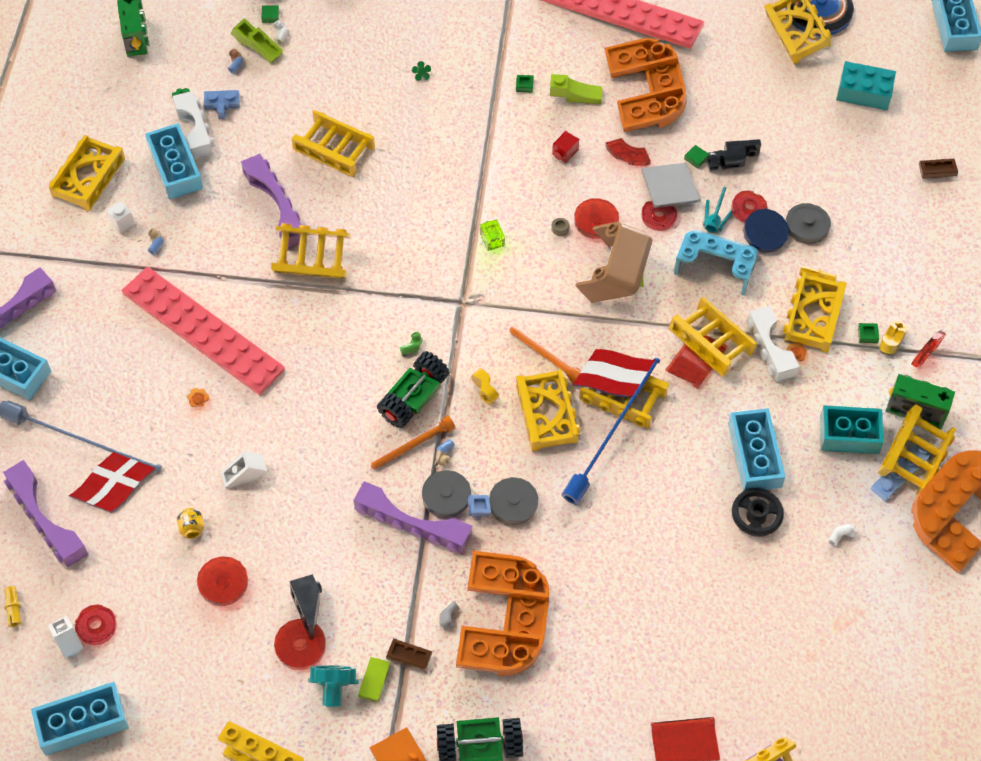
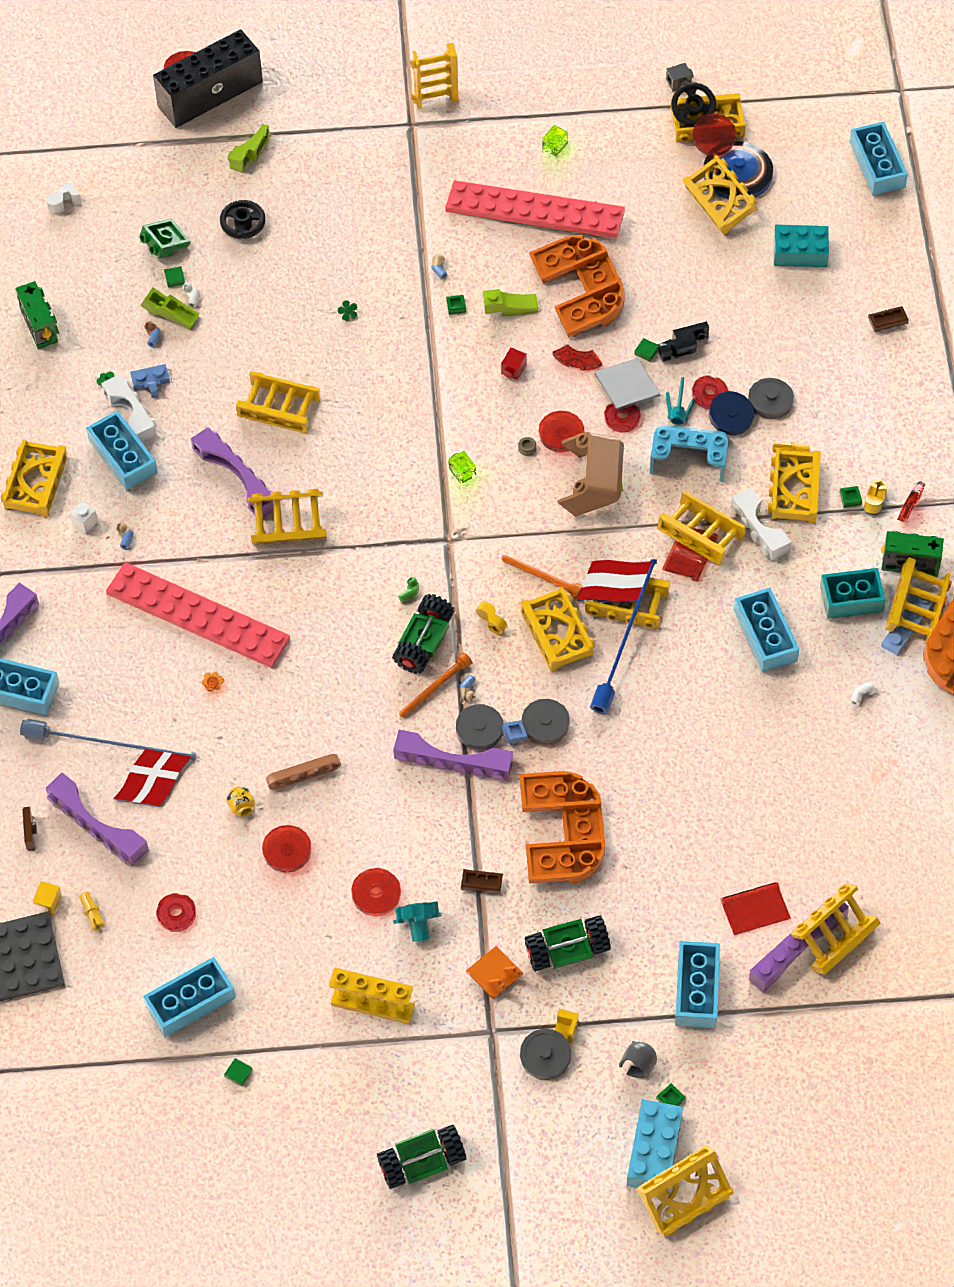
camera: 10 degrees left, 0 degrees up
(65, 637) = (152, 927): white slope -> none
(243, 469) = (278, 741): white slope -> none
(260, 505) = (303, 771): none -> nougat beam
(306, 597) = (371, 847): black slope -> none
(374, 679) = (454, 910): lime tile -> none
(446, 616) = (507, 839): light grey arm -> none
(514, 45) = (437, 262): none -> arm
(756, 520) = (779, 695): black wheel -> none
(798, 350) = (786, 526): clear orange plant -> none

